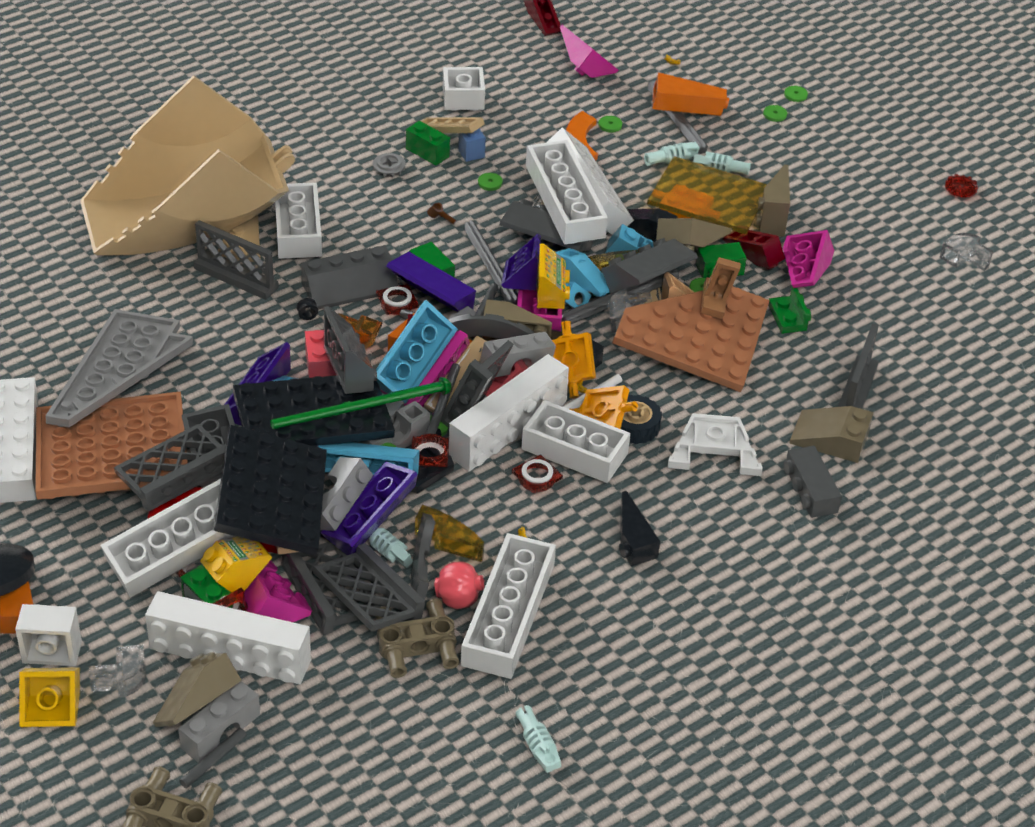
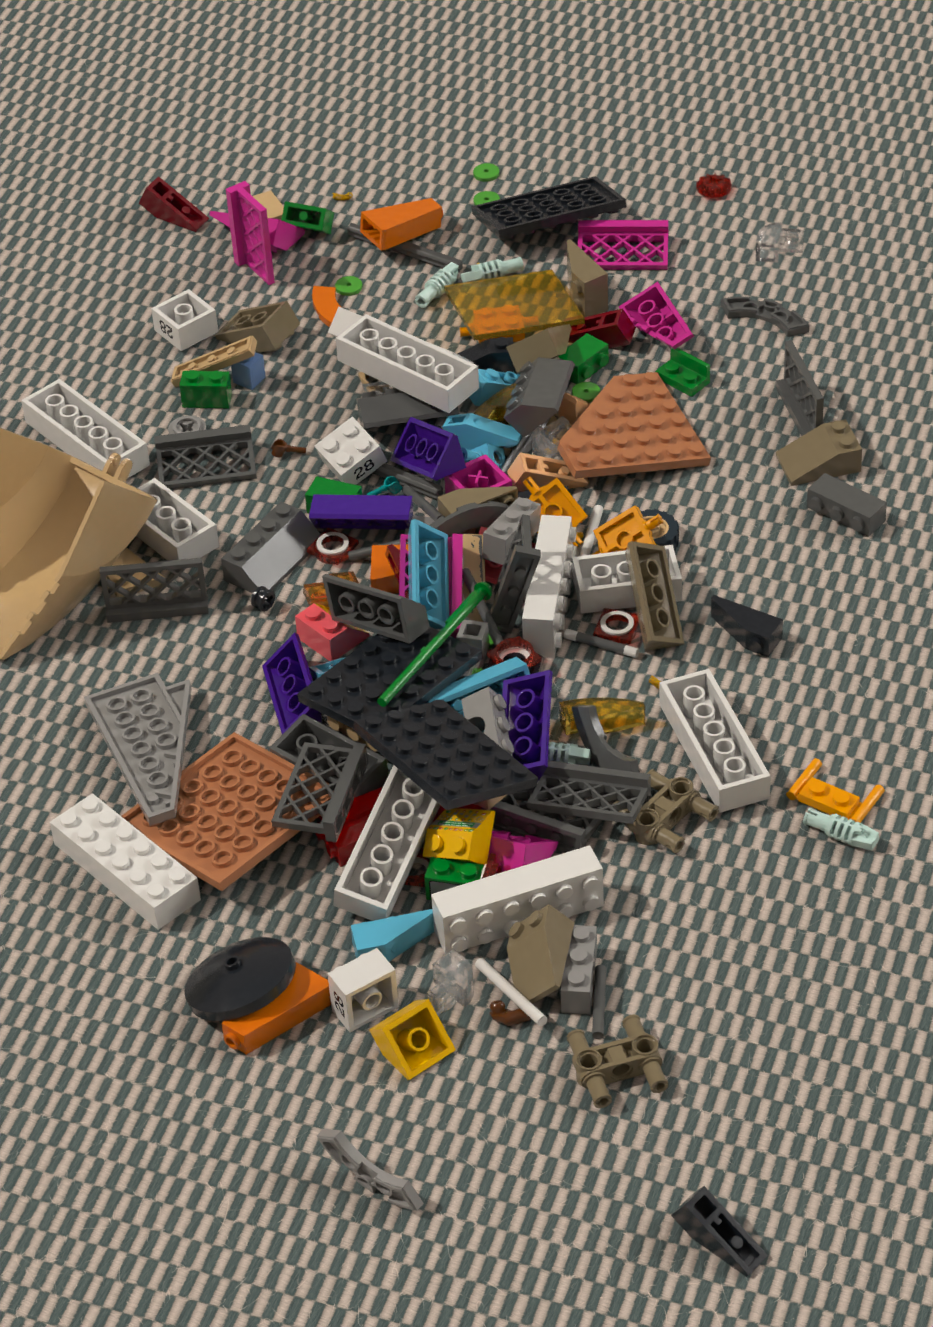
camera: 30 degrees left, 0 degrees up
(112, 607) = (392, 934): none -> medium azure slope
(136, 724) = (506, 1016): none -> reddish brown arm
(154, 707) = (511, 992): none -> white bar
(314, 130) = (82, 427): none -> white brick
(385, 179) = (203, 443): none -> dark grey fence
(458, 585) = (658, 748): coral plant -> none
(472, 238) = (350, 452): none -> white brick
(484, 277) = (390, 484): none -> teal hand
(490, 181) = (290, 398): bright green wheel -> none
(513, 121) = (267, 323): none -> dark tan slope
(513, 480) = (601, 643): none -> dark grey bar
(552, 279) = (479, 451): yellow slope -> none
(558, 711) = (830, 798): none -> light orange plate
(560, 43) = (250, 231): none -> dark pink fence
(572, 463) = (654, 596): none -> dark tan slope
(599, 325) = (542, 471): none -> light nougat slope
(611, 43) = (271, 203): none -> tan tile
(624, 61) = (308, 217): none -> green brick
(715, 436) = (734, 510): white wing -> none
(718, 287) = (621, 384): medium nougat bracket -> none
(807, 138) = (549, 207): none -> black plate
(849, 184) = (623, 232): none -> dark pink fence
(909, 300) = (788, 321): none -> dark grey tile

